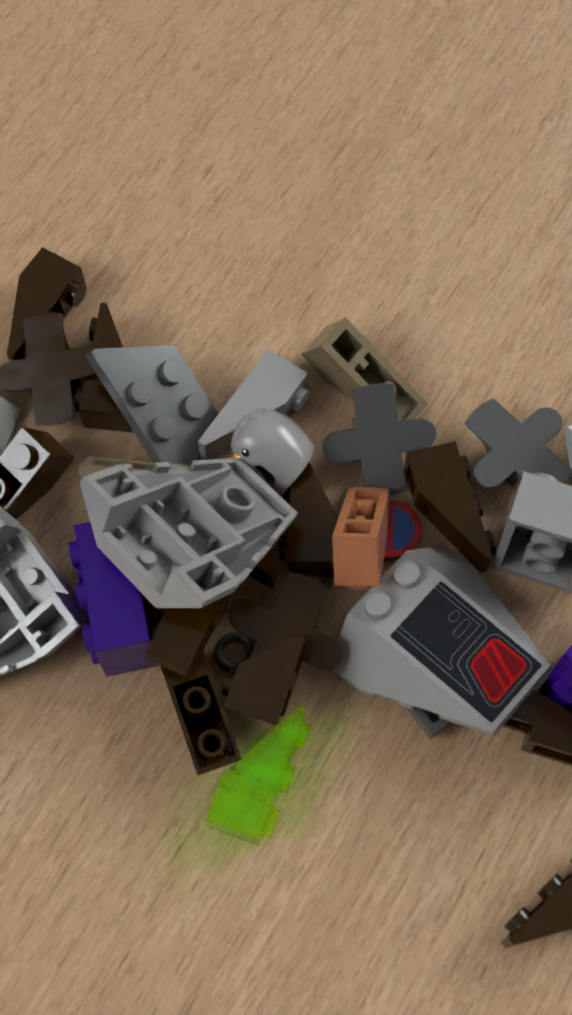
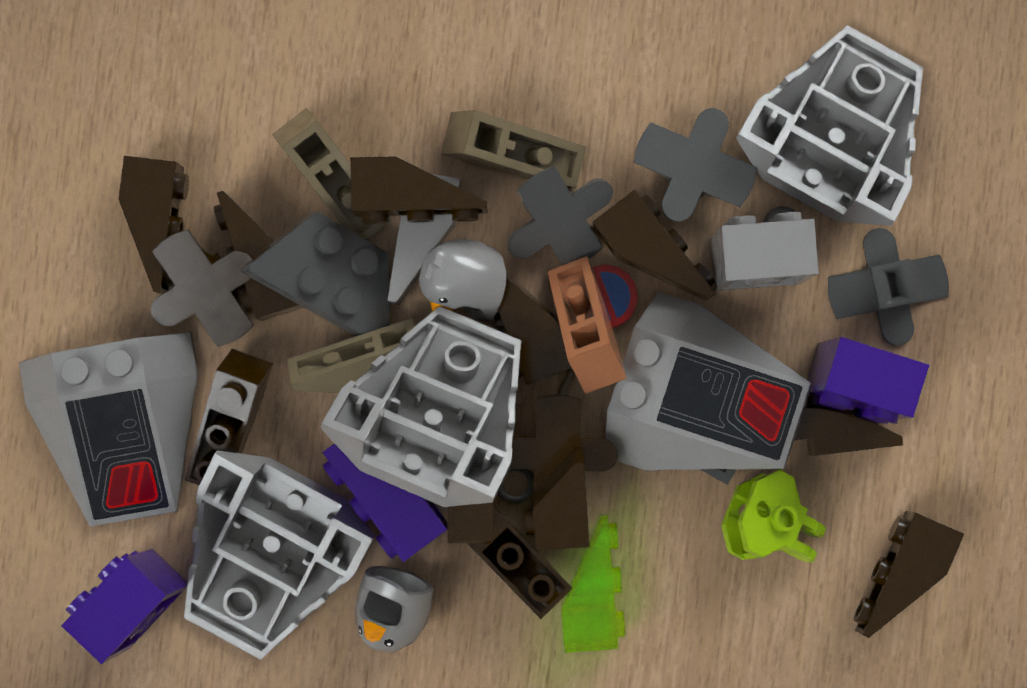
camera: 25 degrees left, 20 degrees up
(64, 707) = (392, 608): none -> light grey piece
(202, 334) = (323, 168): none -> dark tan slope
(252, 352) = (397, 188): none -> dark brown slope
(459, 782) = (769, 519): none -> lime hinge

